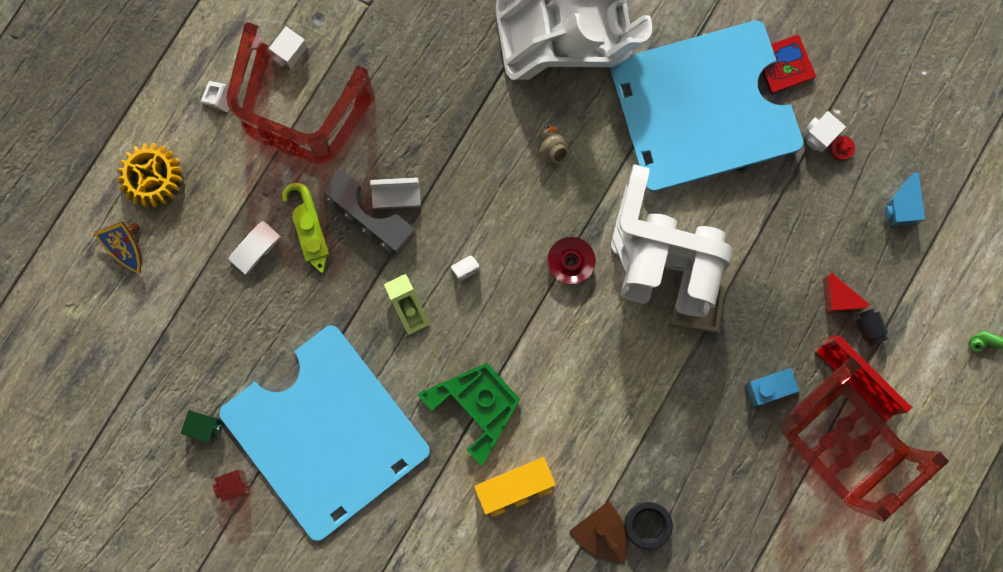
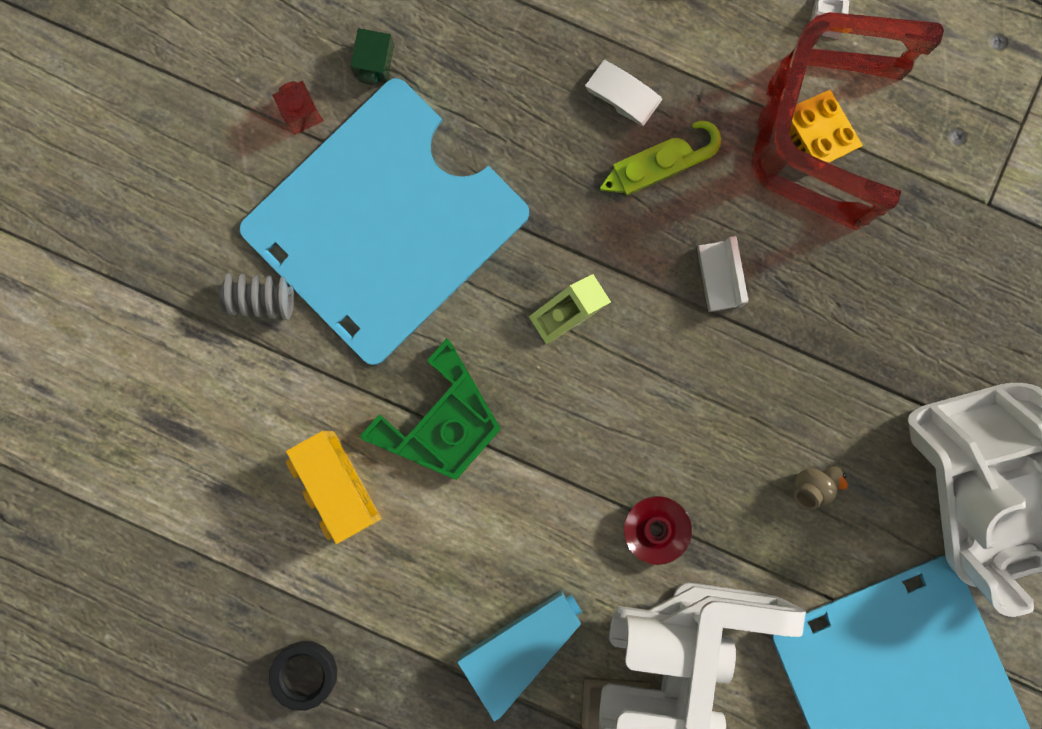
camera: 85 degrees right, 5 degrees up
(287, 48) = (910, 99): white brick -> none
(301, 110) = (823, 128): none -> yellow hinge
(368, 531) = (256, 297): none -> light grey piece
(391, 231) = (713, 206): dark grey arch -> none
(465, 268) = (629, 384): white slope -> none
(603, 534) = (287, 613): reddish brown shield -> none
(646, 367) = (517, 653): none -> medium azure slope

